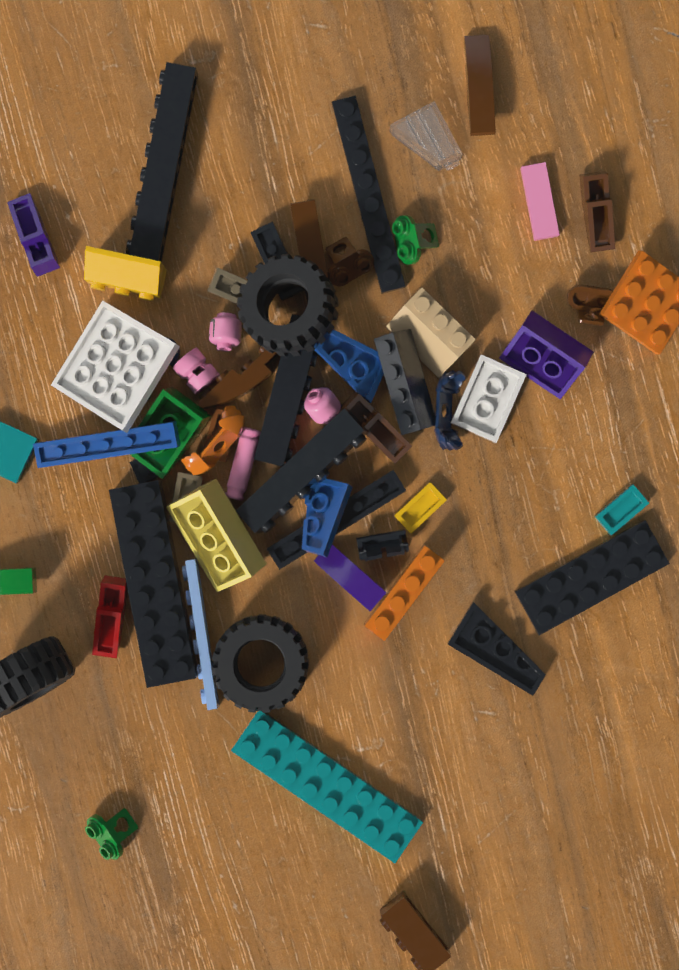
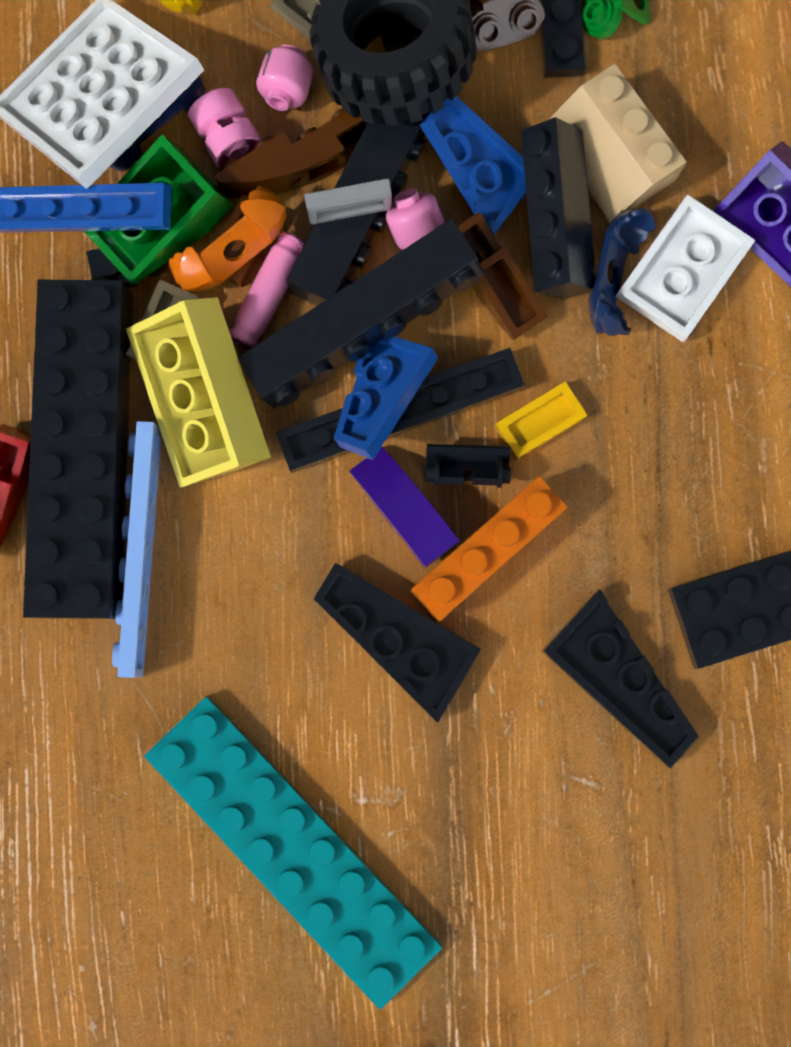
camera: 10 degrees right, 5 degrees down
(260, 697) = (167, 608): black tyre -> none
(281, 407) = (349, 201): none -> light grey tile
(367, 655) = (406, 644): none -> black wing

